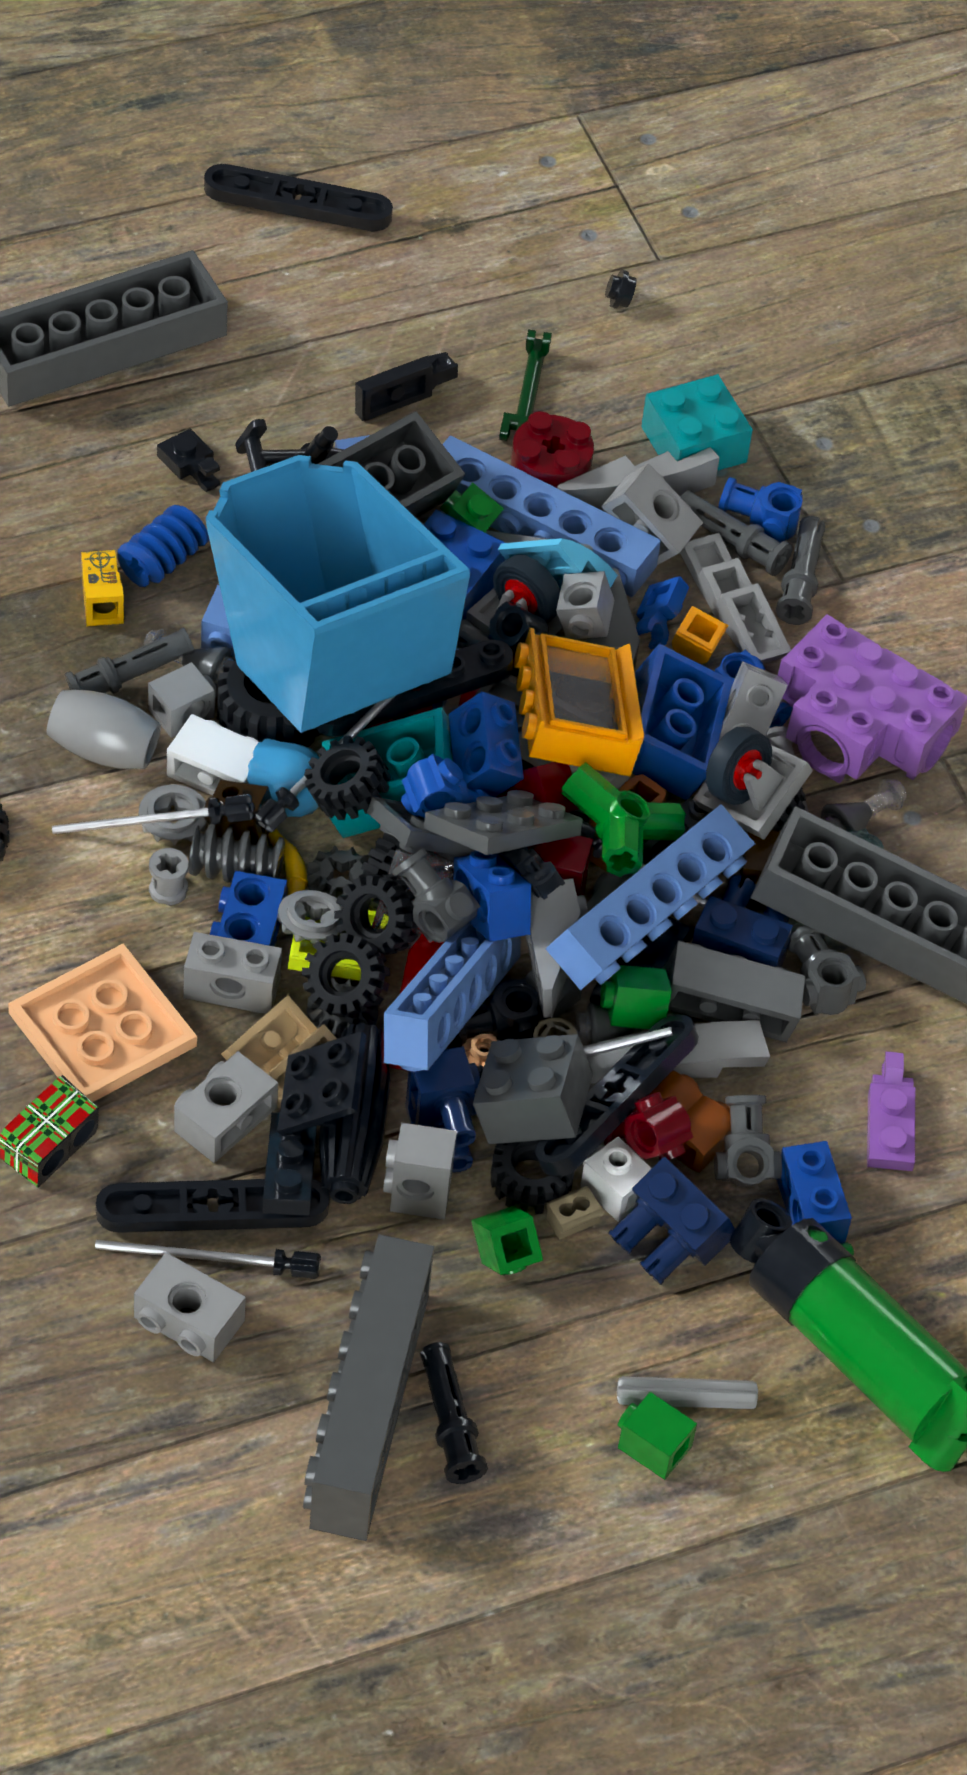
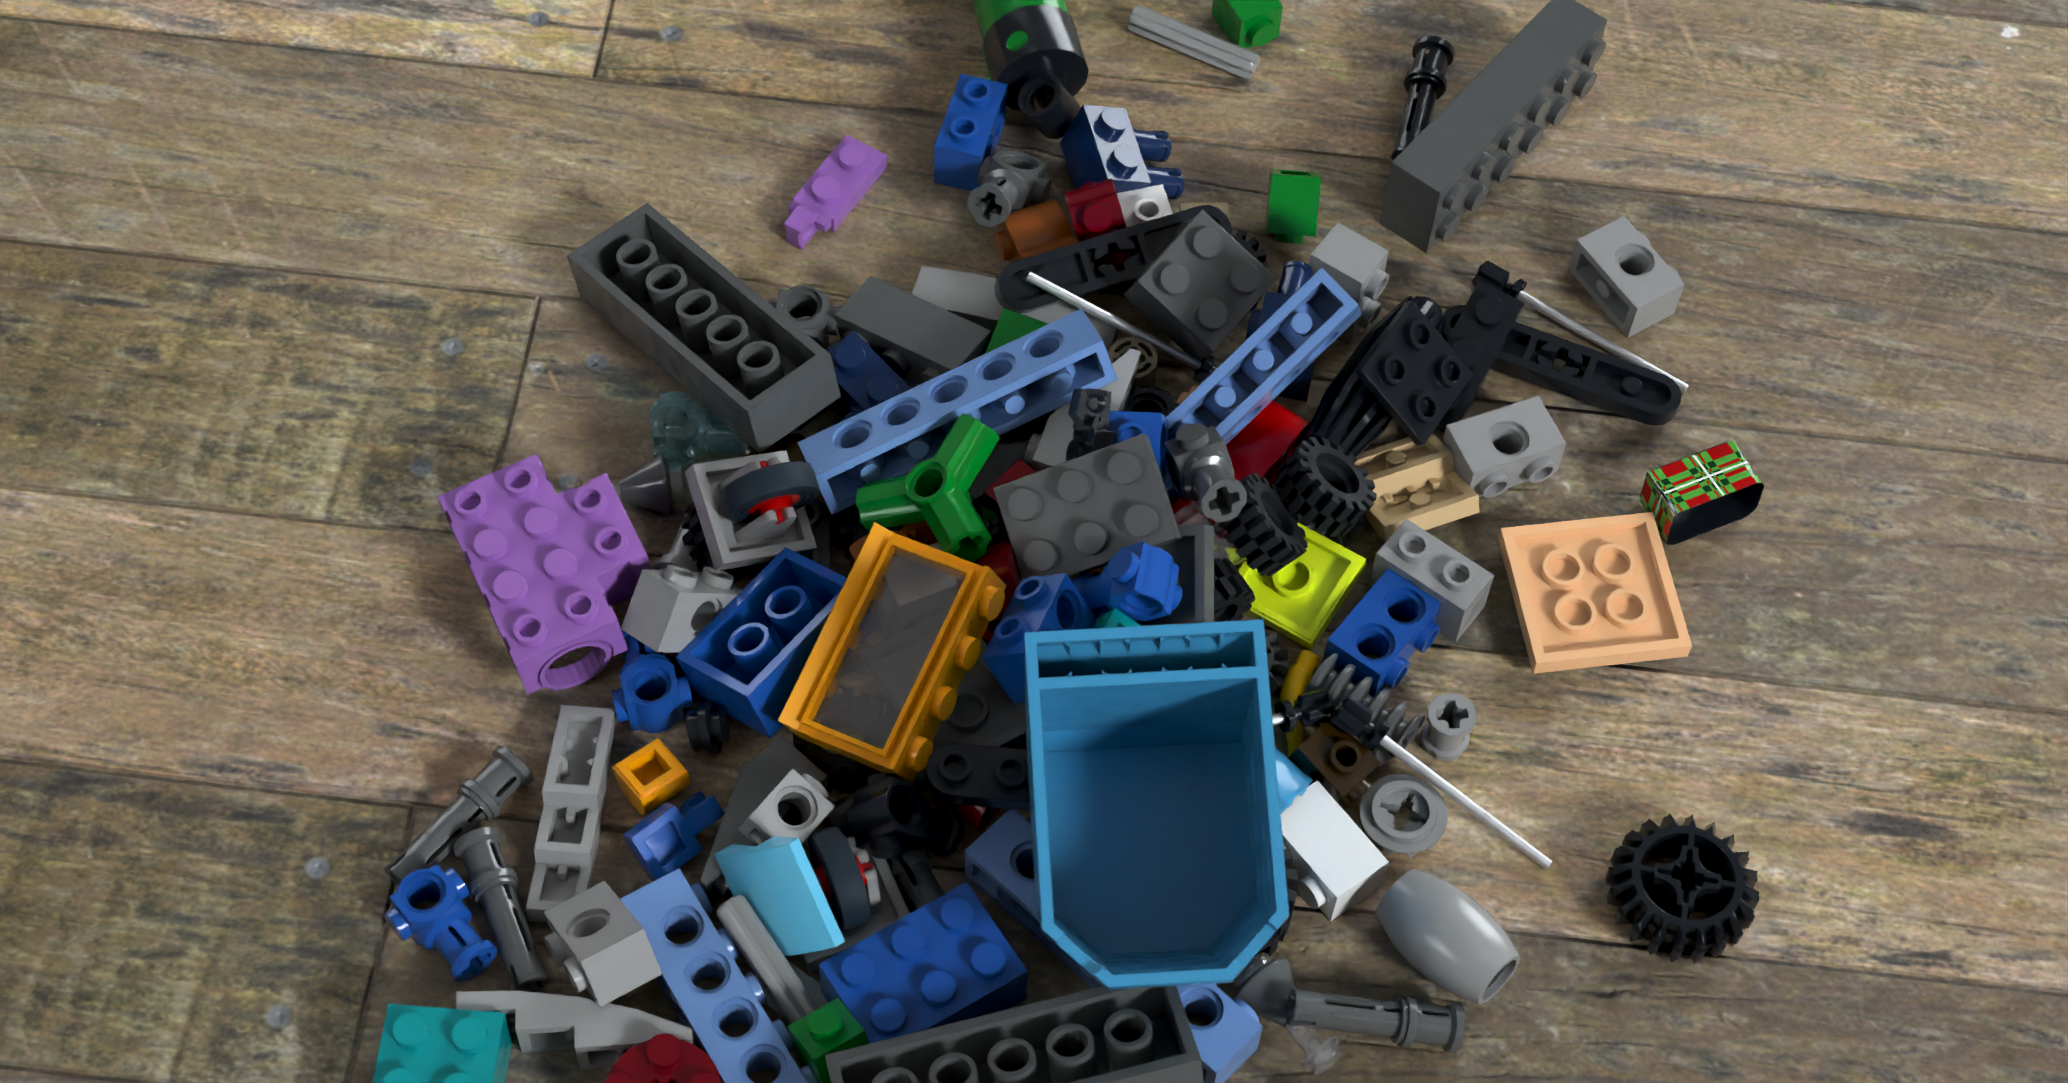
camera: 150 degrees left, 5 degrees up
(180, 695) = (1327, 952): light grey brick -> none
(313, 905) = (1335, 571): light grey gear -> none

